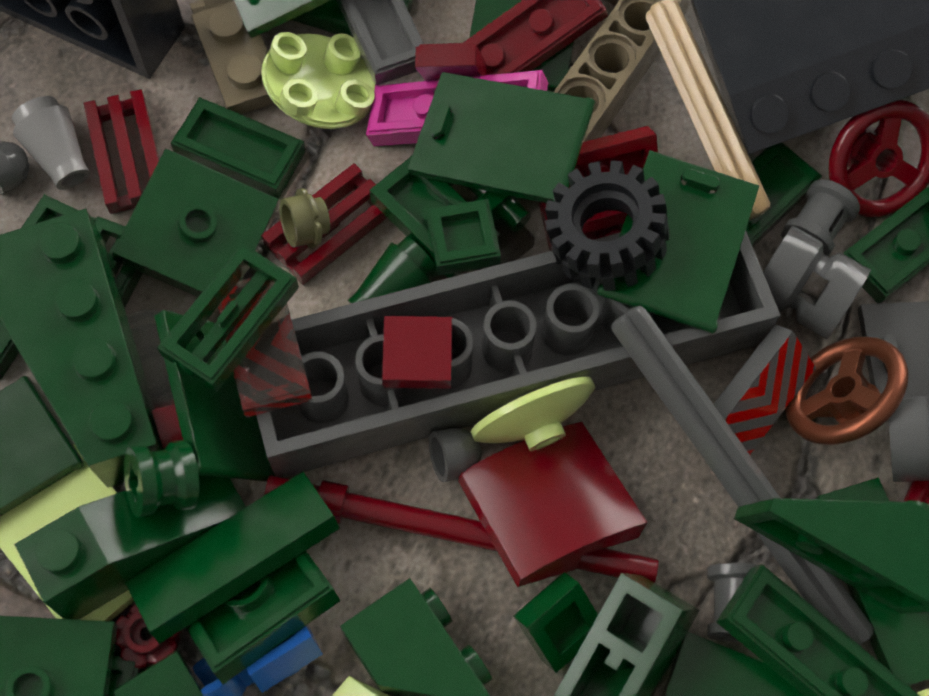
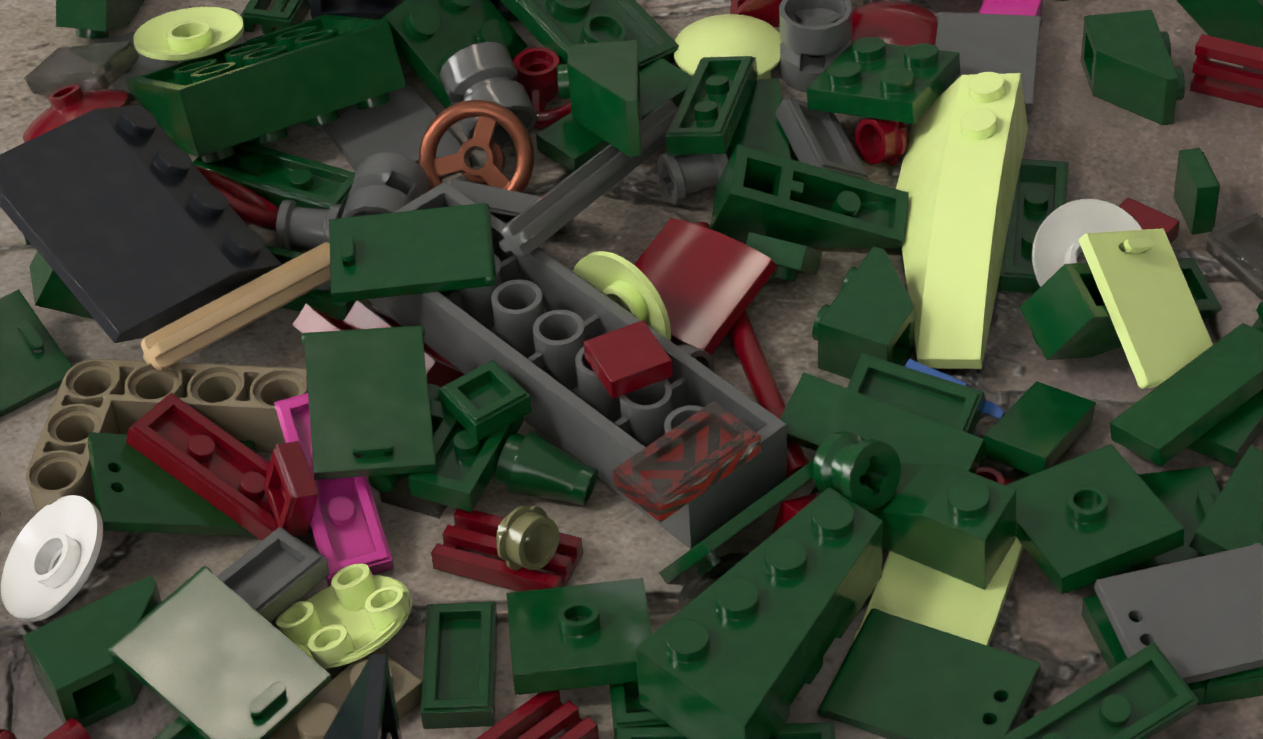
camera: 110 degrees left, 25 degrees down
(249, 332) = (683, 476): dark green tile -> none
(607, 193) = (430, 244): black tyre -> none

